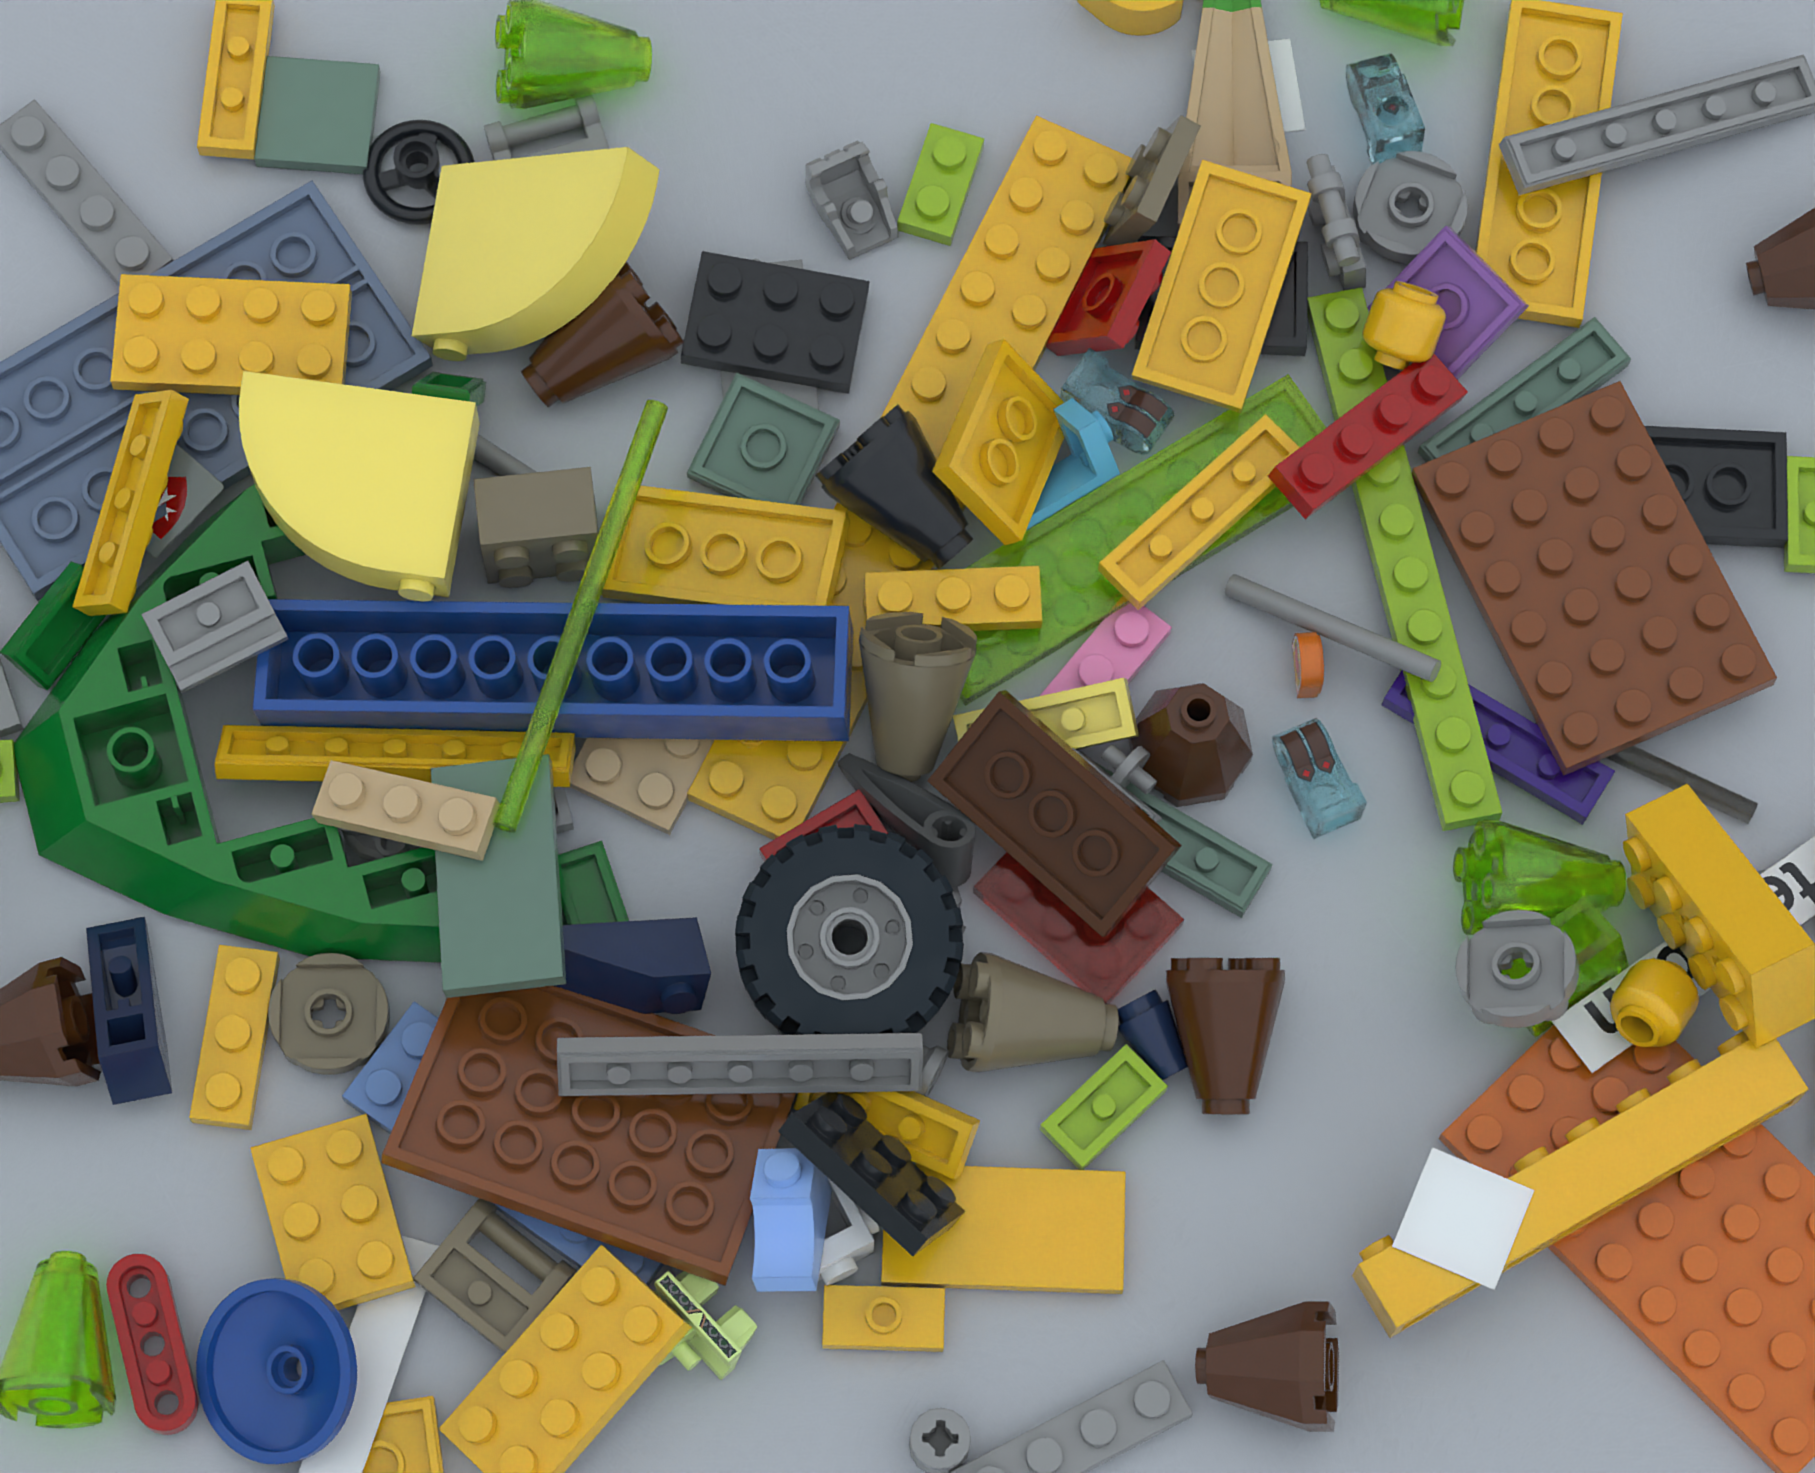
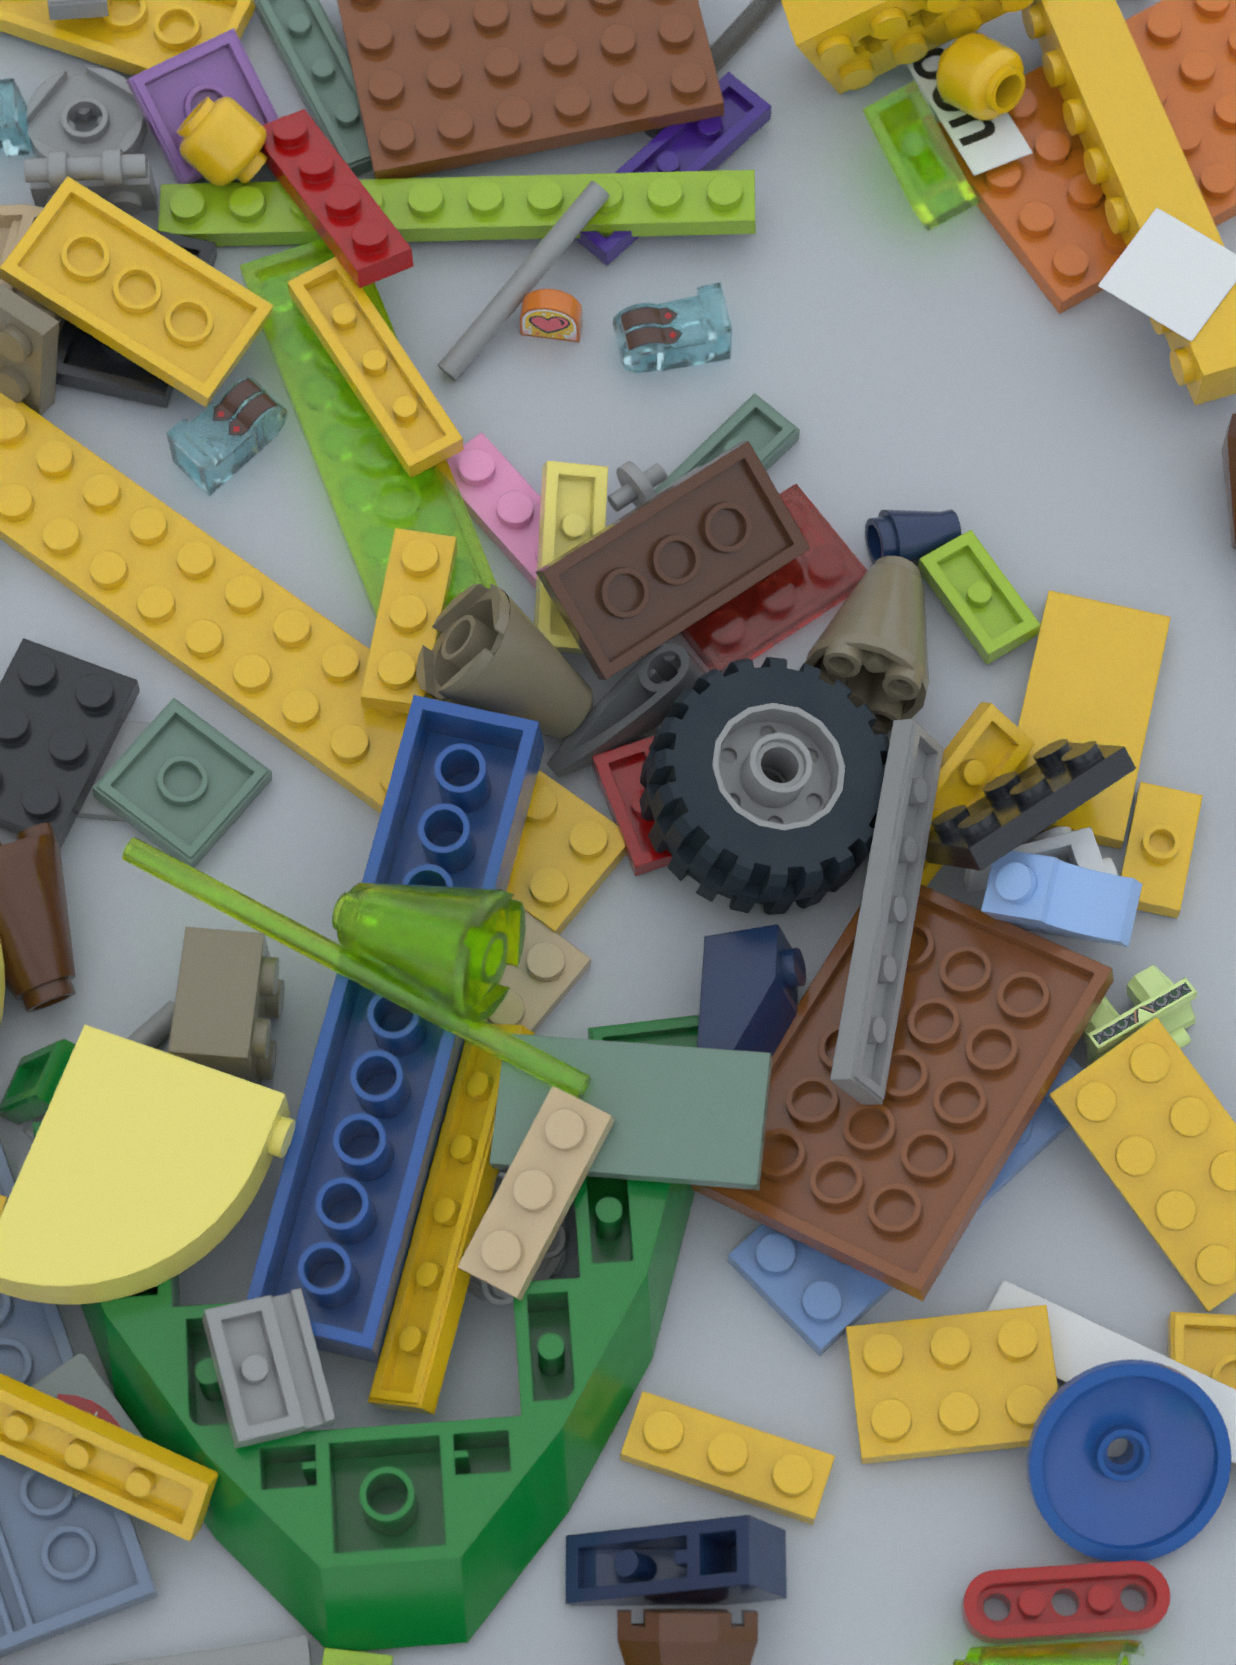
camera: 75 degrees left, 5 degrees down
(52, 631) = (204, 1577): green tile -> none
(305, 991) = (701, 1317): dark tan plate -> none
(479, 1289) = (1064, 1240): dark tan plate -> none
(603, 672) = (436, 940): none -> clear neon green cone
(726, 551) = (305, 822): yellow plate -> none
(892, 487) = (277, 637): black cone -> none
(1002, 443) = (252, 530): yellow plate -> none
(1086, 467) = (296, 490): medium azure bracket -> none
(1109, 298) = (115, 403): red plate -> none
(1194, 743) = (609, 422): reddish brown cone -> none
(1225, 1025) = (919, 460): reddish brown cone -> none
(1521, 1001) = (952, 201): light grey plate -> none
(1532, 872) = (826, 170): clear neon green cone -> none

